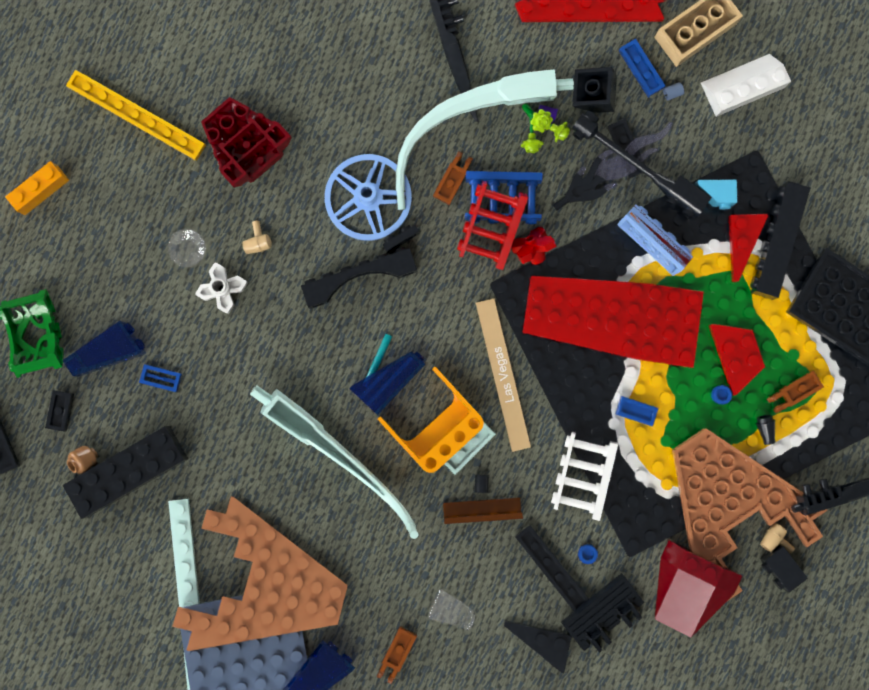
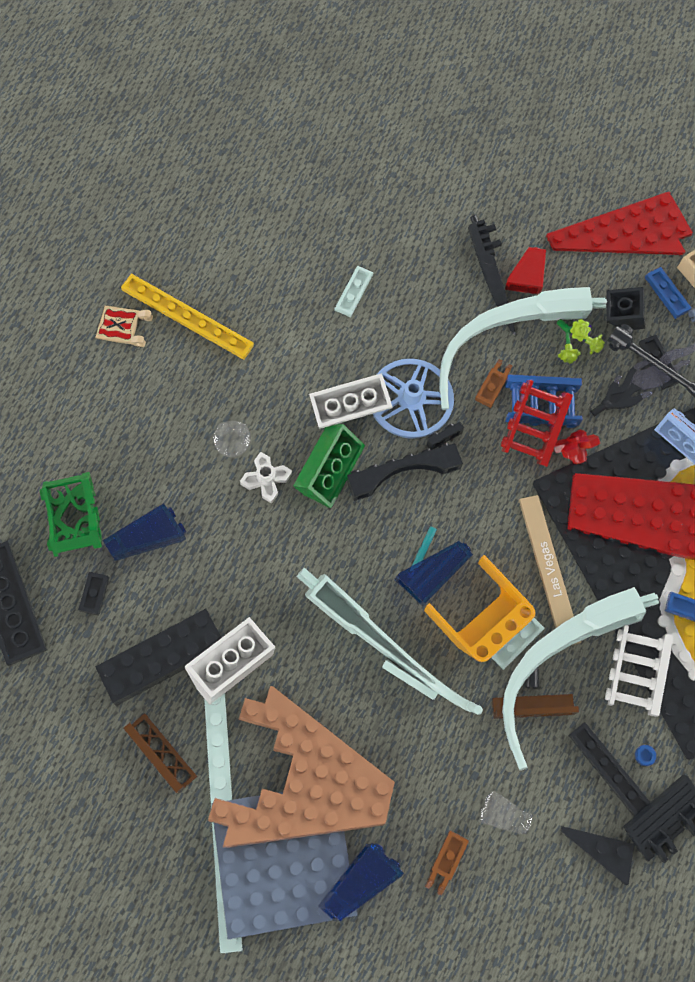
camera: 10 degrees left, 15 degrees down
(37, 188) = (87, 377): light orange brick -> none
(68, 127) = (120, 325): none -> tan flag
(82, 459) = (115, 642): medium nougat head -> none
(123, 565) = (153, 757): none -> reddish brown fence
(176, 382) = (198, 571): blue tile -> none
(188, 476) = (229, 660): none -> white slope
(244, 141) = (293, 341): dark red wedge -> none
(259, 242) = (304, 435): tan piece -> none
(284, 273) = (329, 464): none -> green slope
(302, 207) = (350, 401): none -> white slope
(308, 79) = (354, 291): none -> light aqua tile
(353, 482) = (409, 679): none -> light aqua tile
(492, 51) = (528, 273): none -> red slope
(542, 428) = (595, 620): none -> light aqua piece

